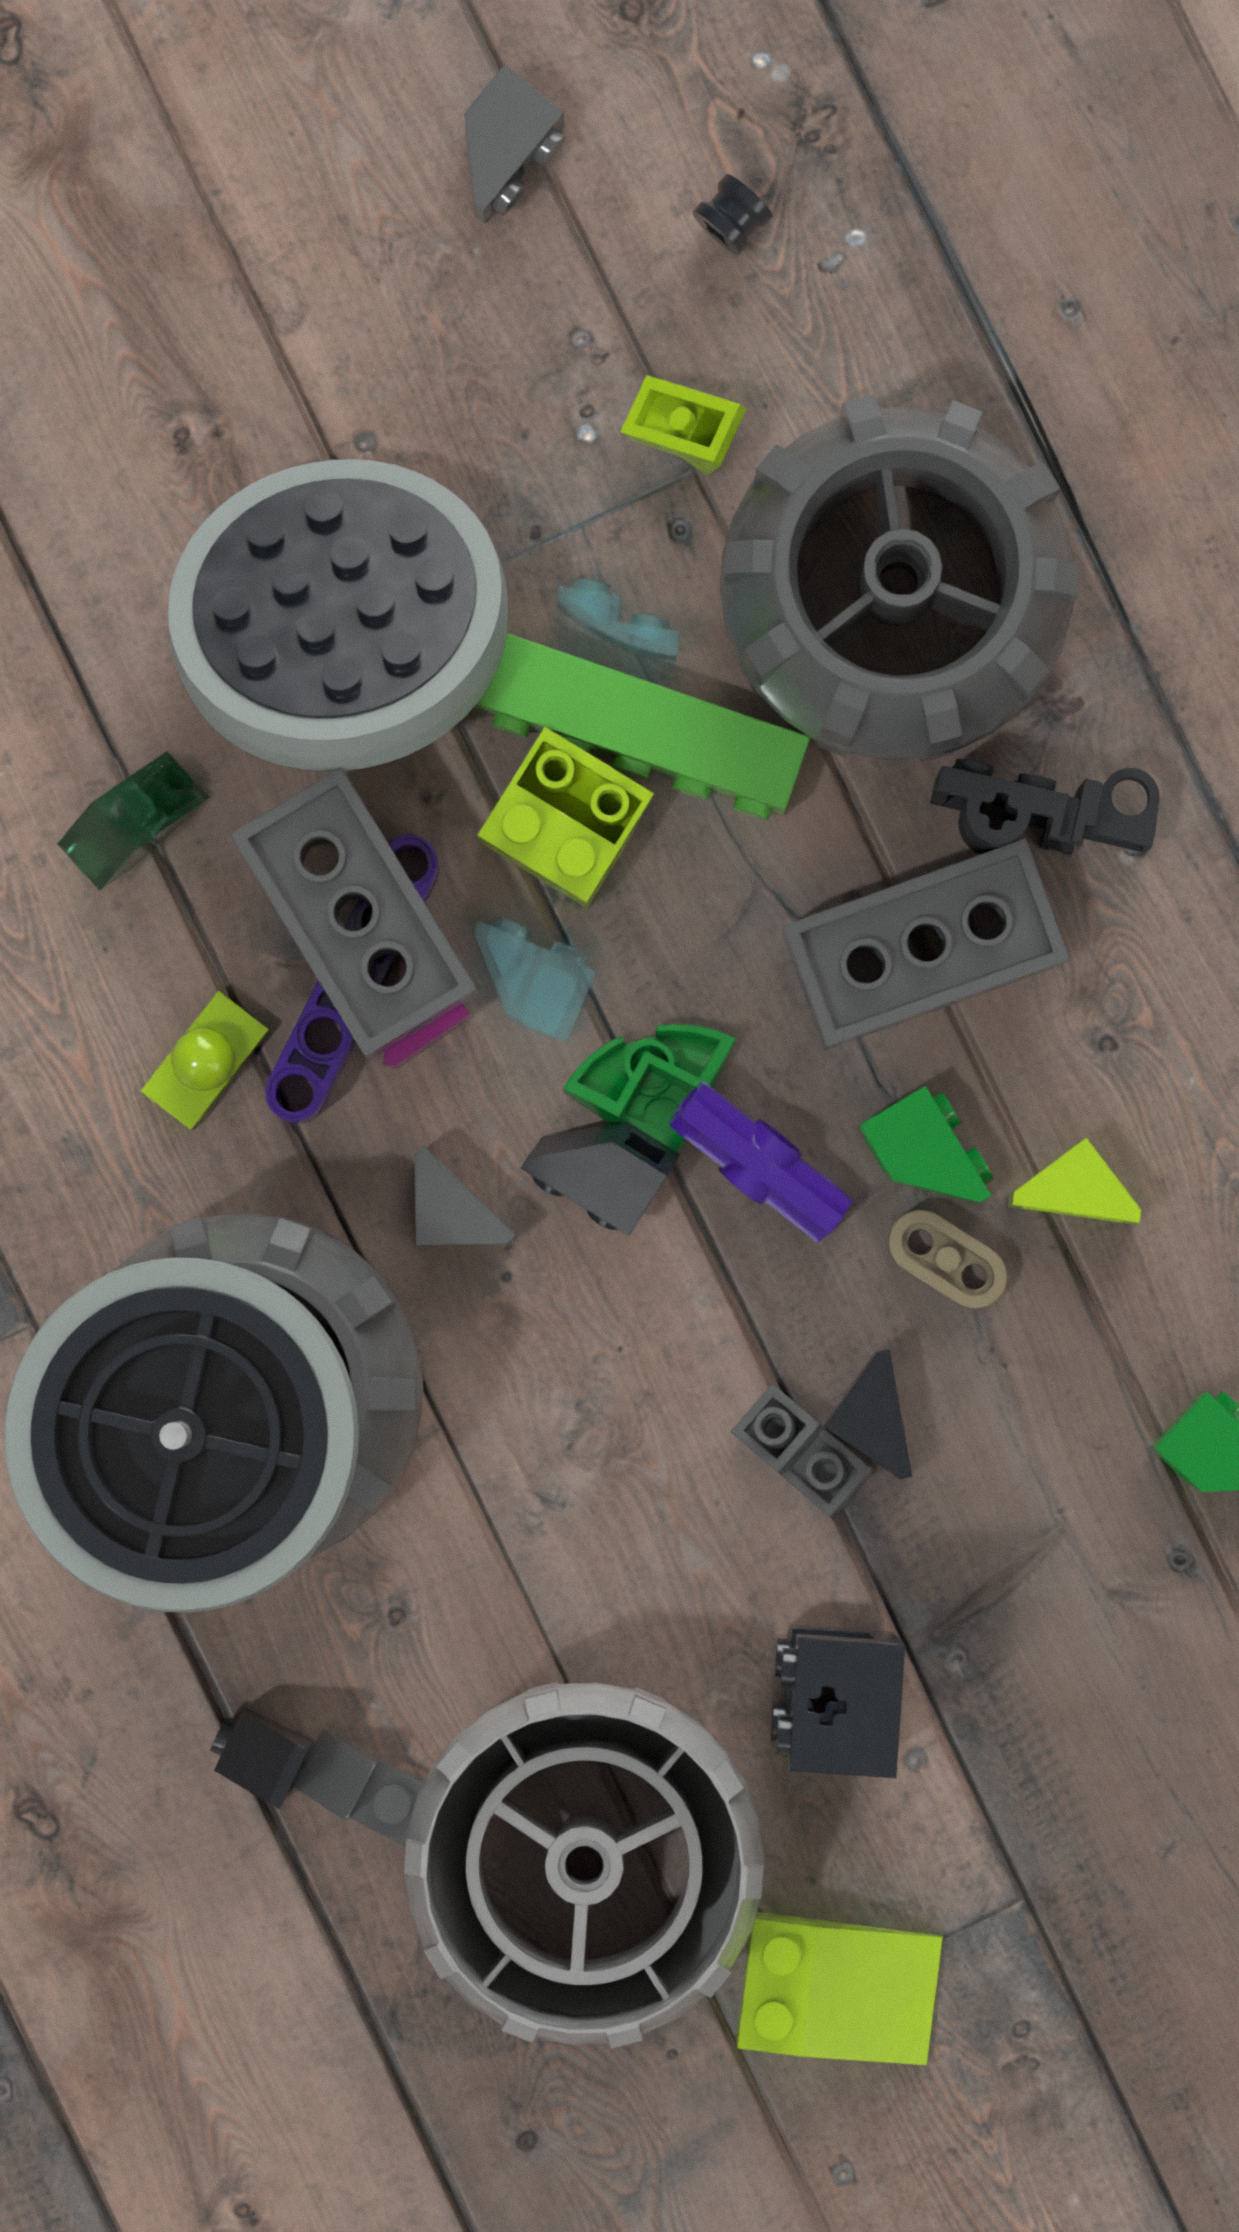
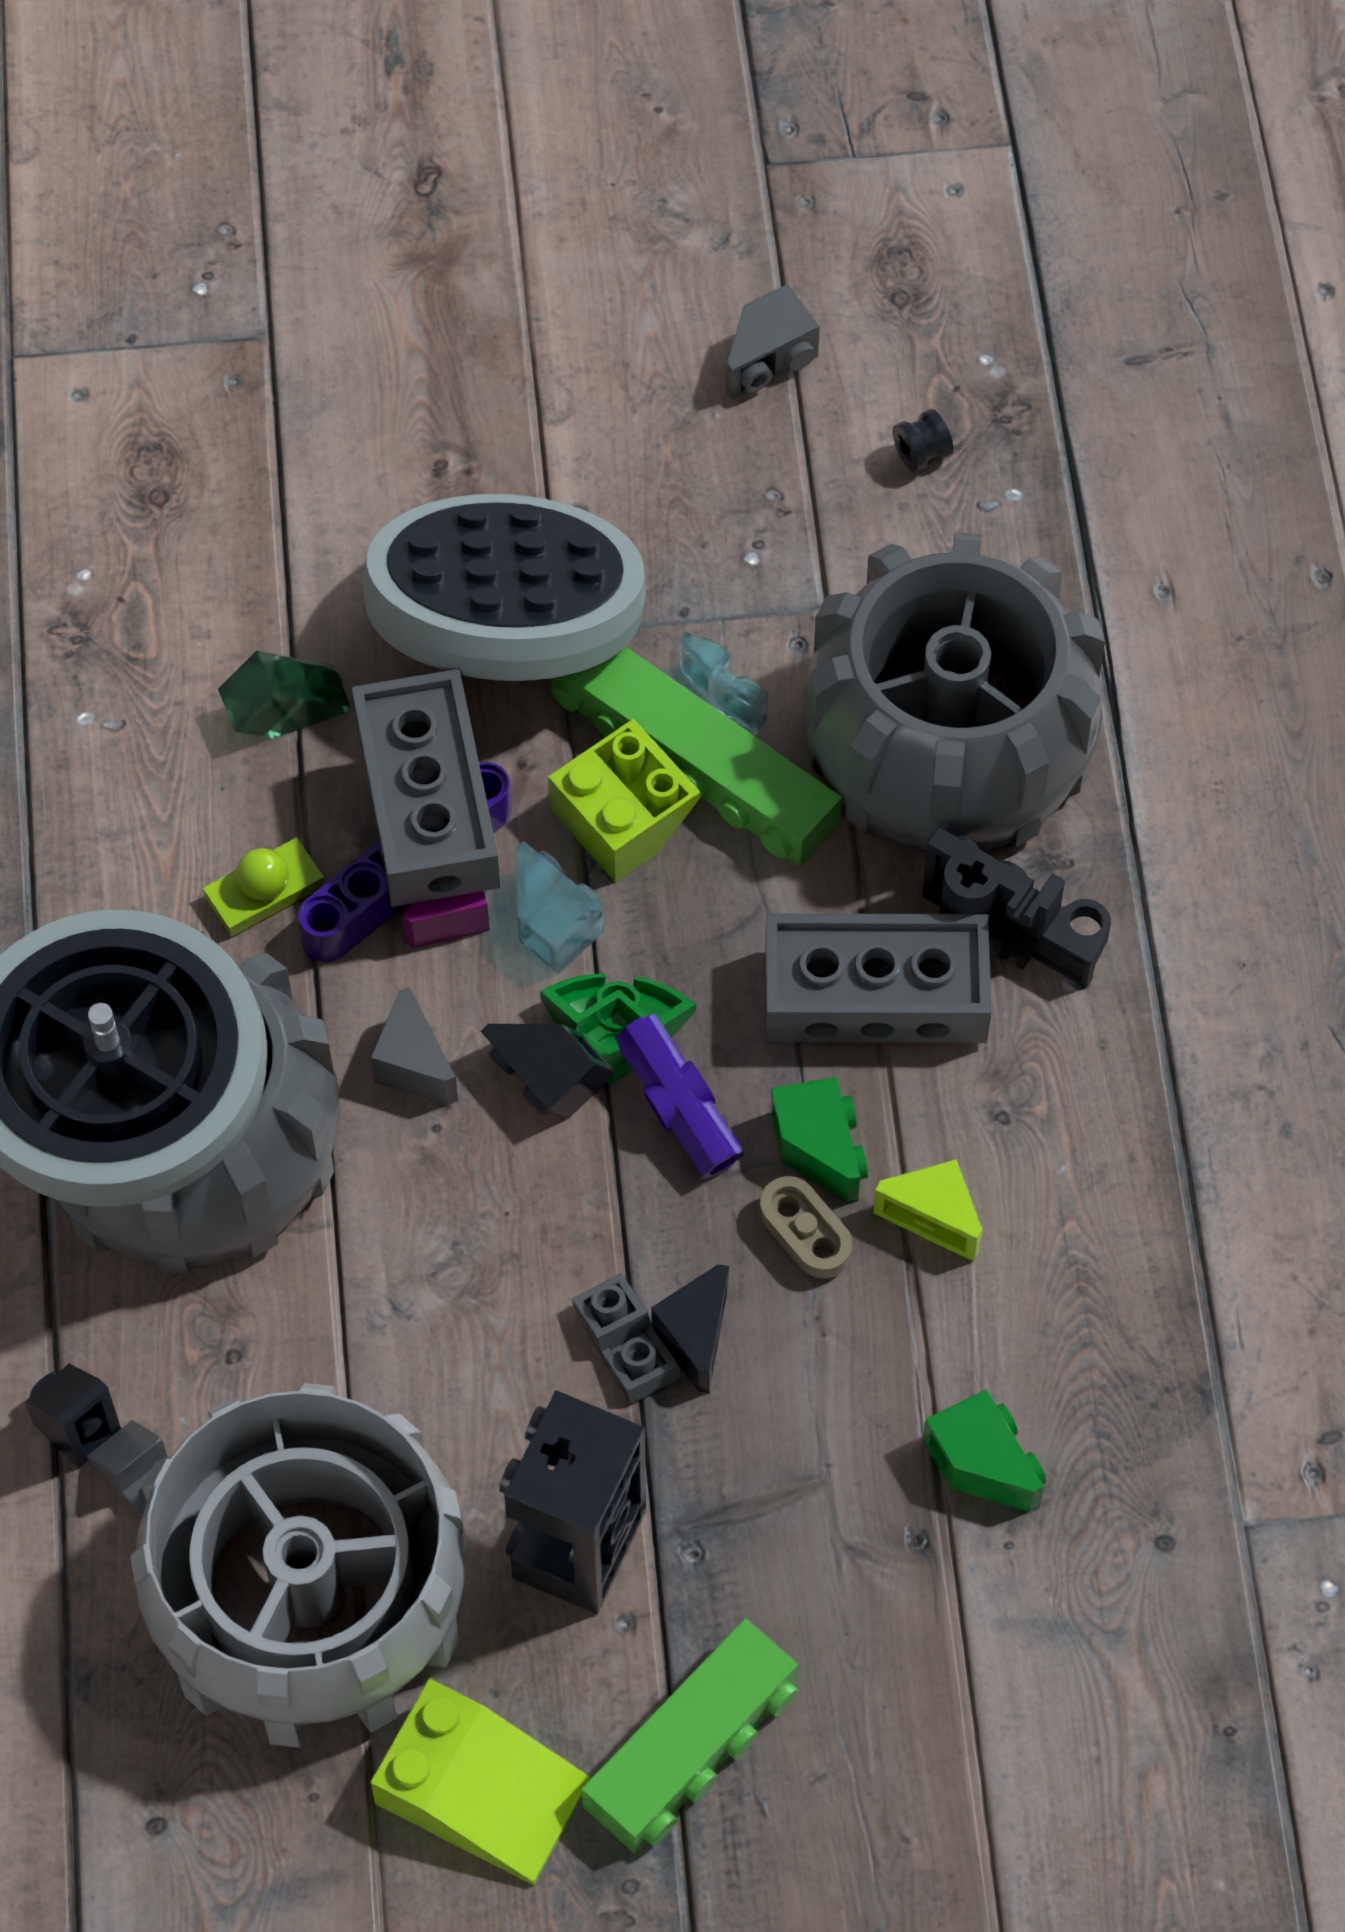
camera: 20 degrees right, 25 degrees down
(683, 423) = (830, 559): lime slope -> none
(1031, 1867) = (691, 1737): none -> bright green brick

